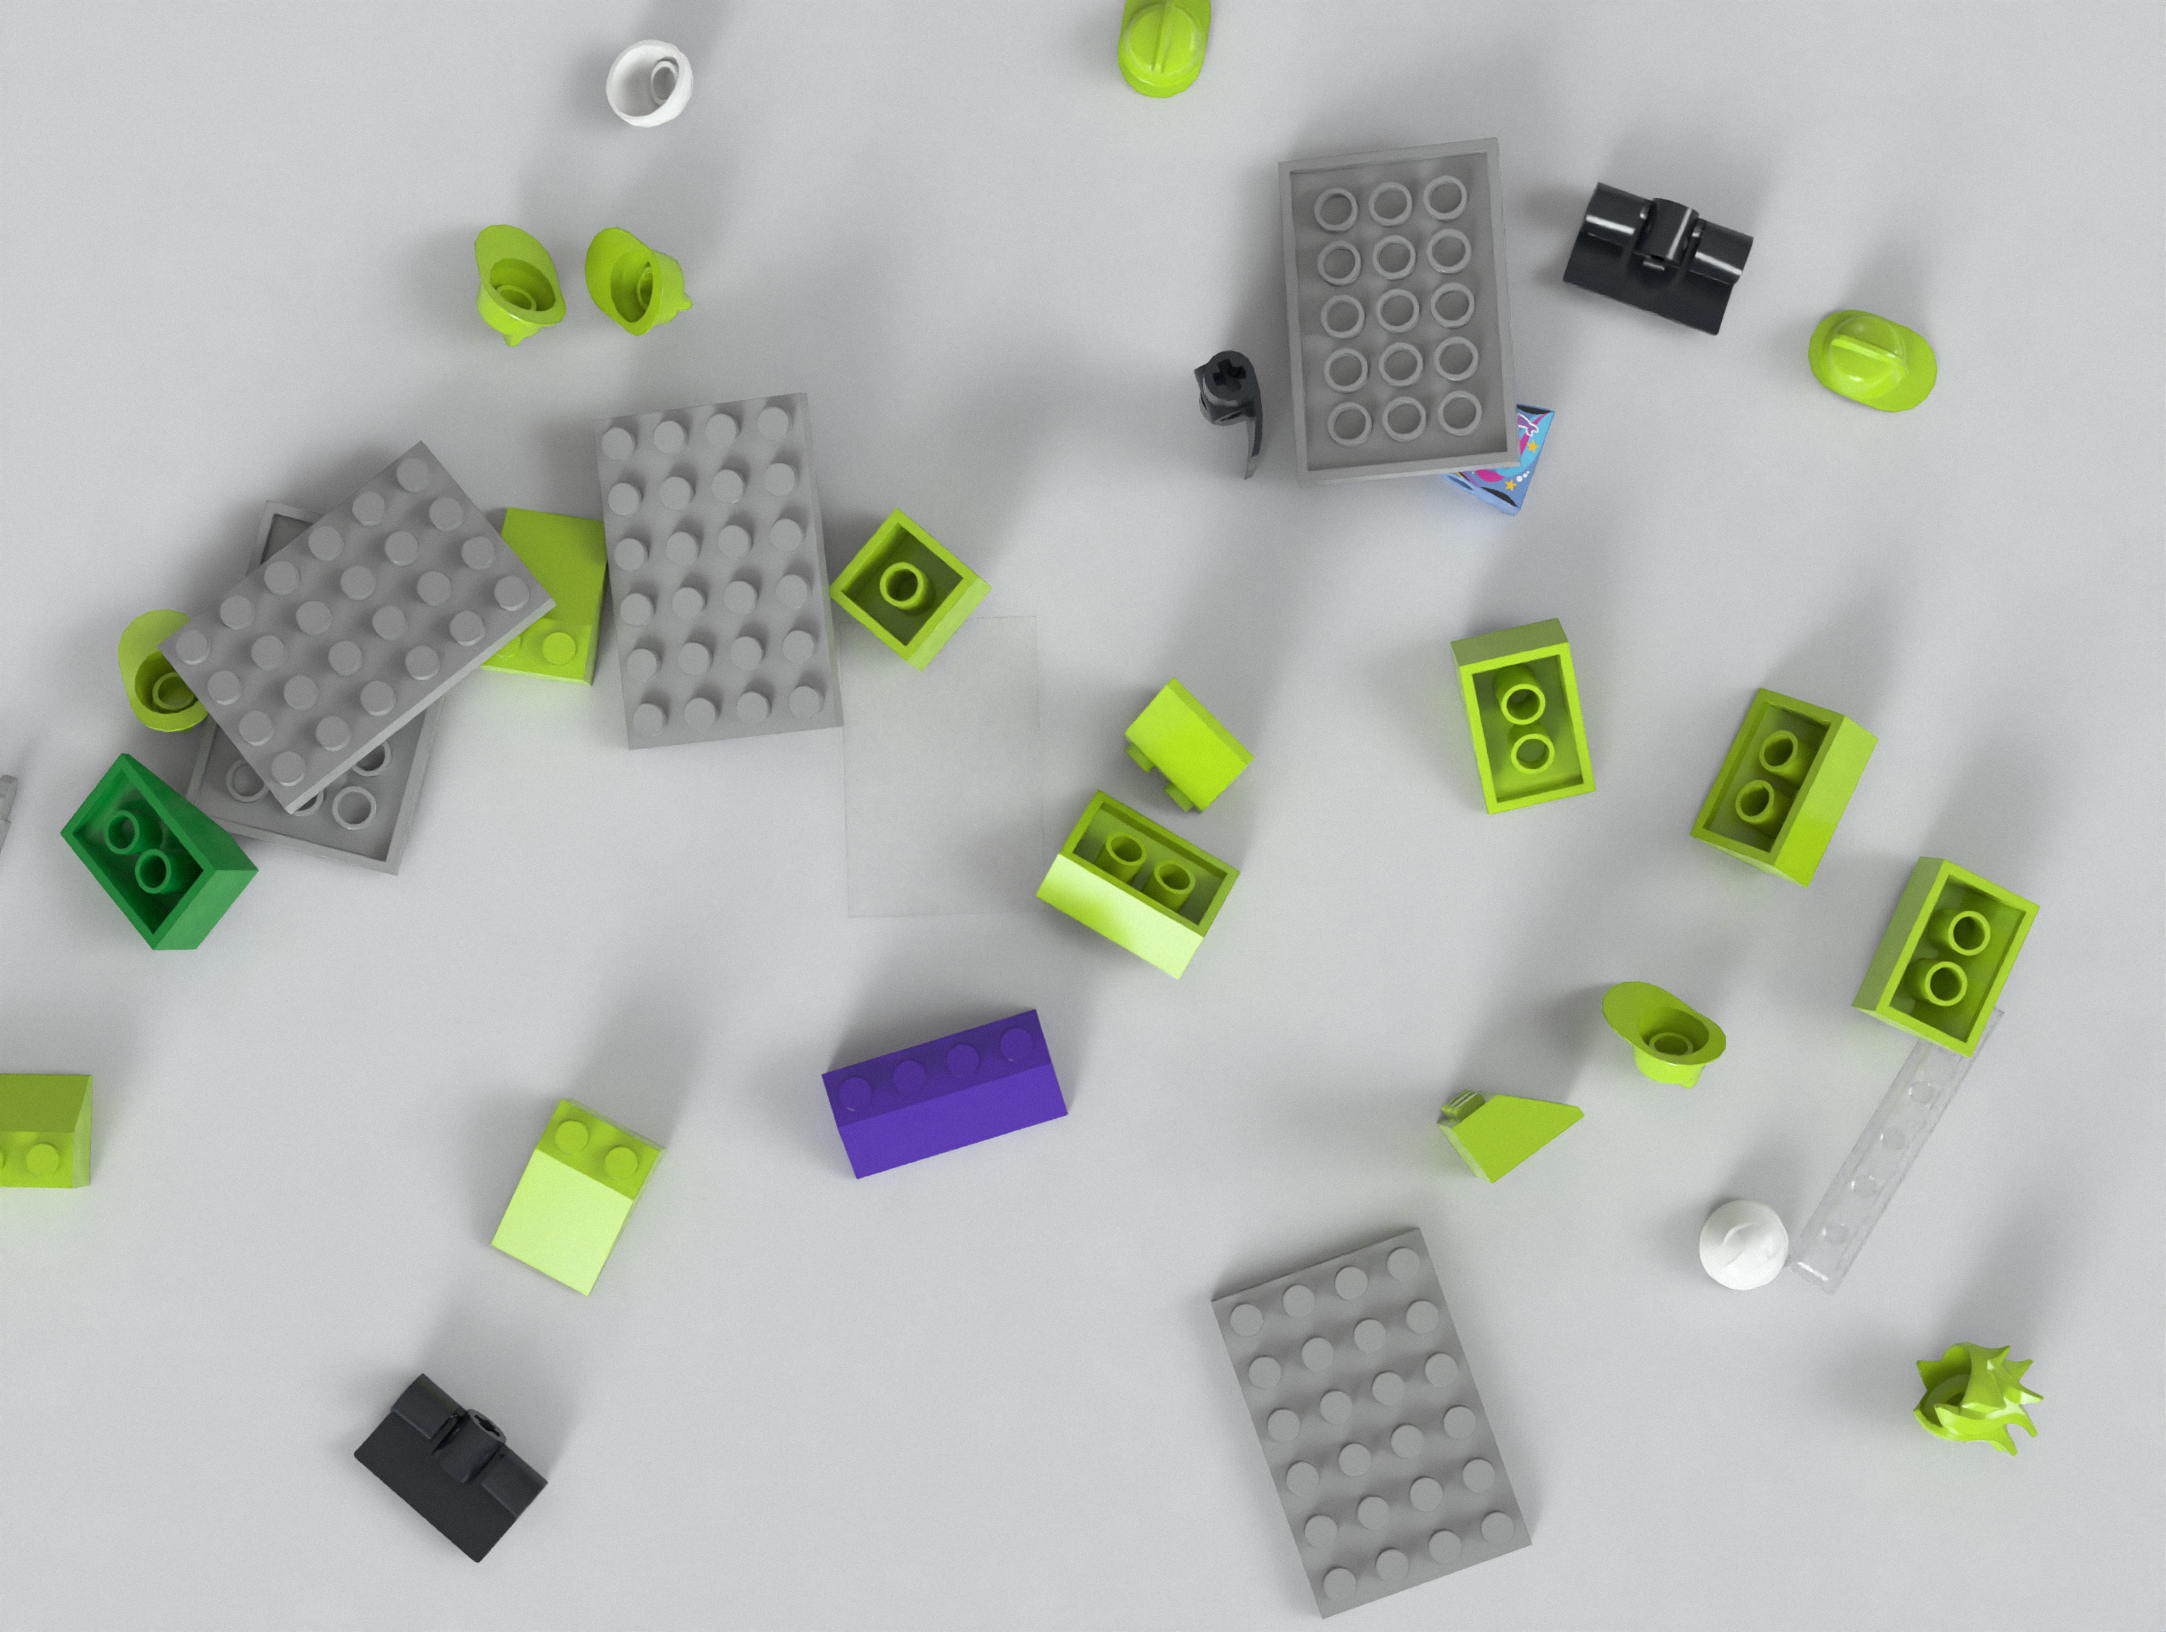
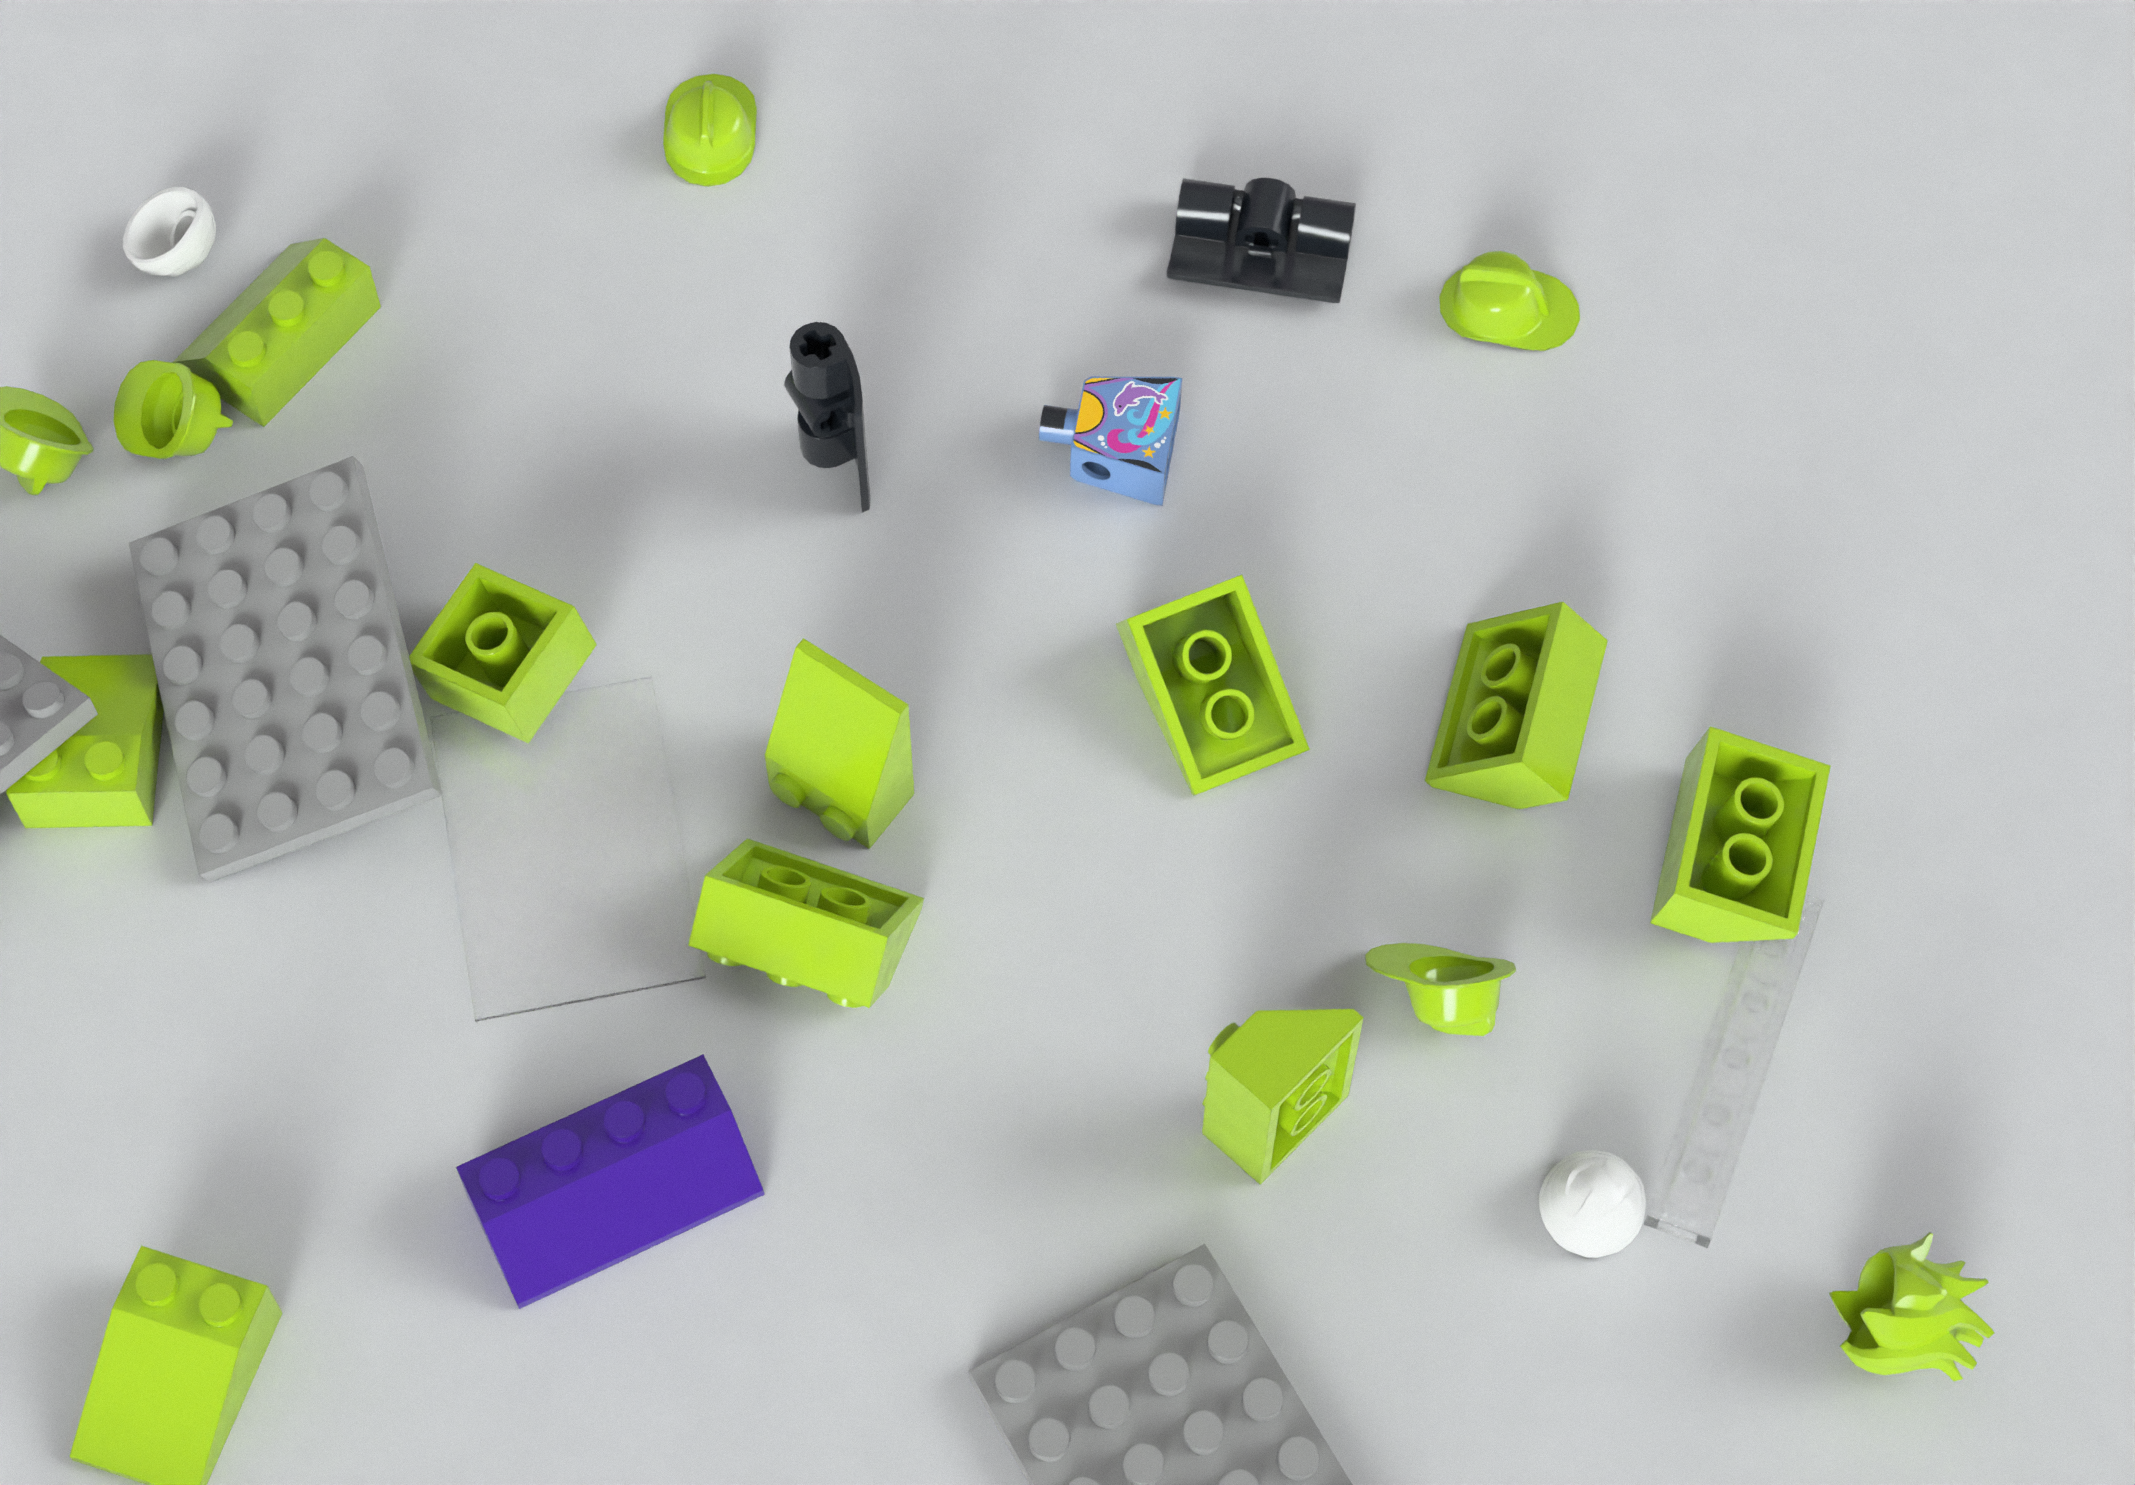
camera: 10 degrees left, 25 degrees down
(741, 198) = (284, 327): none -> lime slope
(1399, 313) = (997, 317): light grey plate -> none

